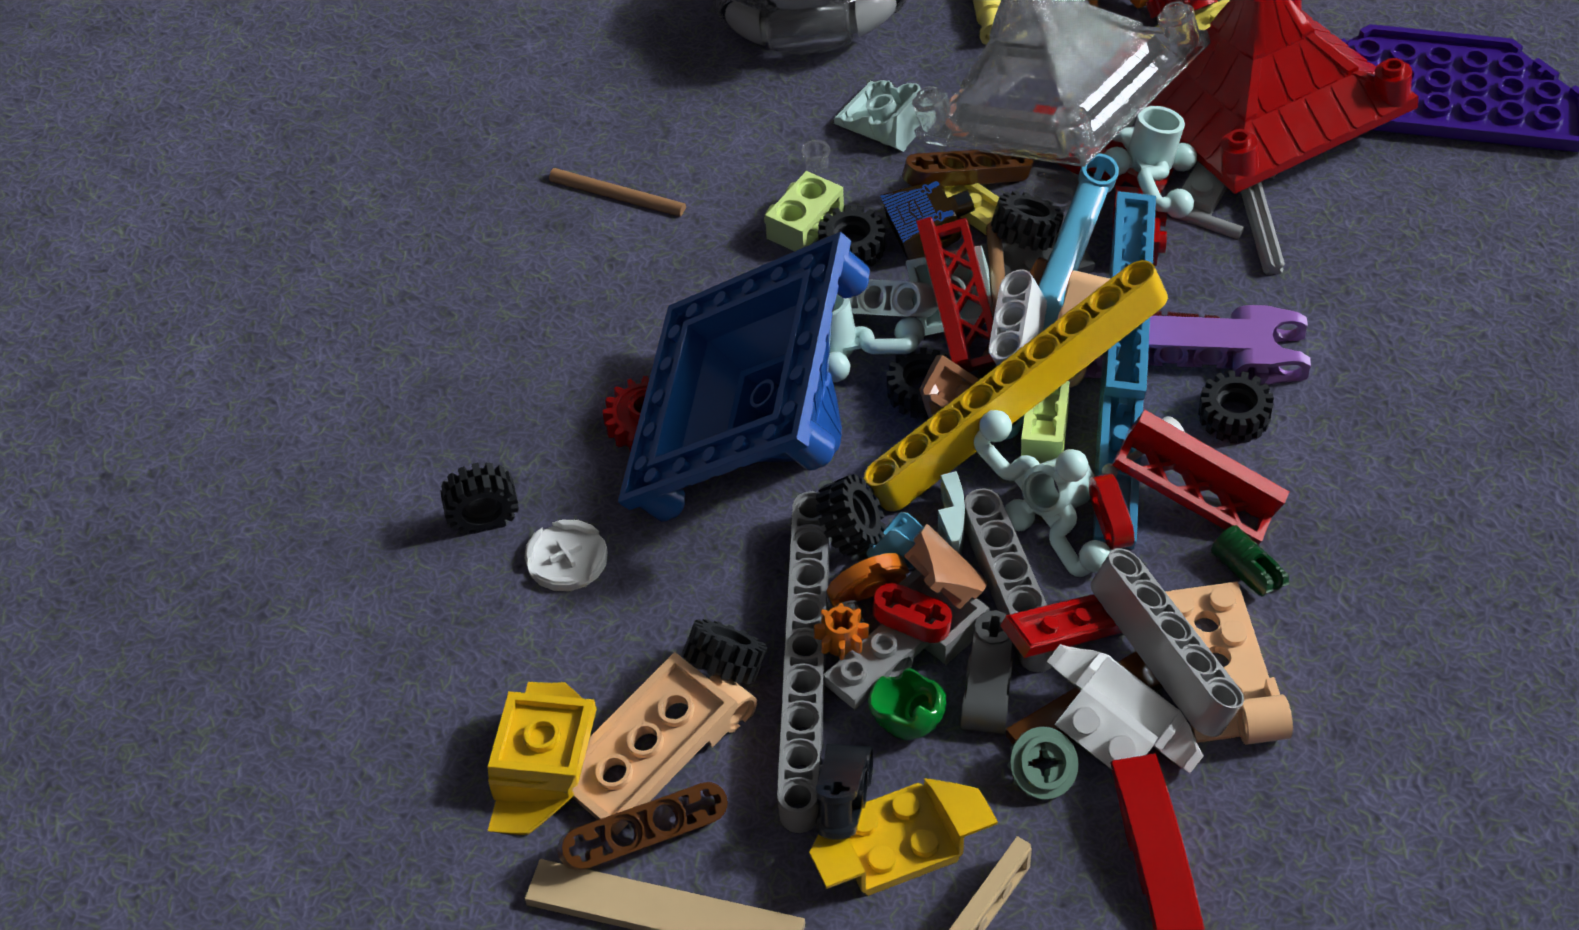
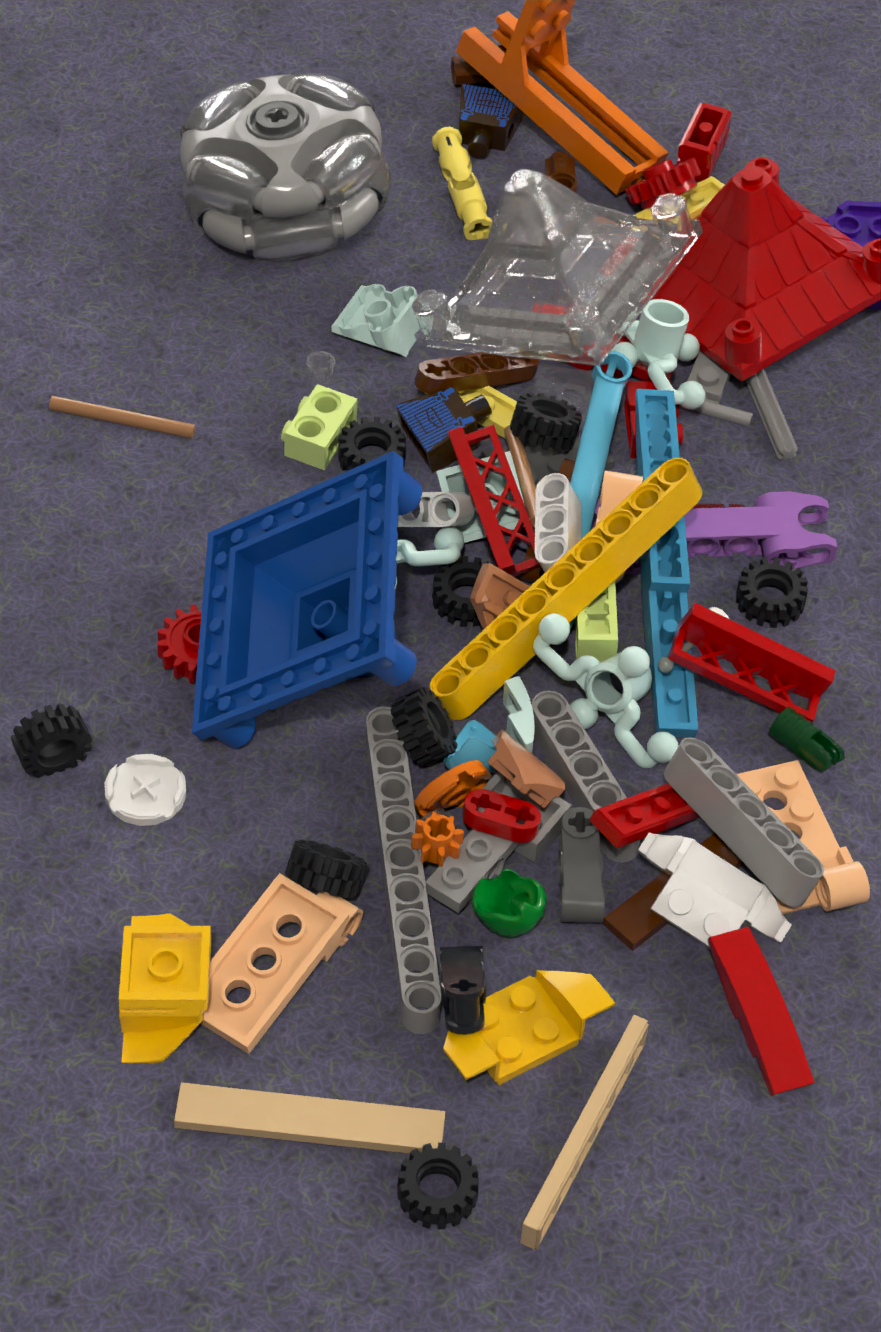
camera: 15 degrees left, 0 degrees up
(642, 823) = (278, 1044): reddish brown beam -> none
(1053, 747) = (653, 930): sand green gear -> none
(1111, 511) = (673, 703): red beam -> none

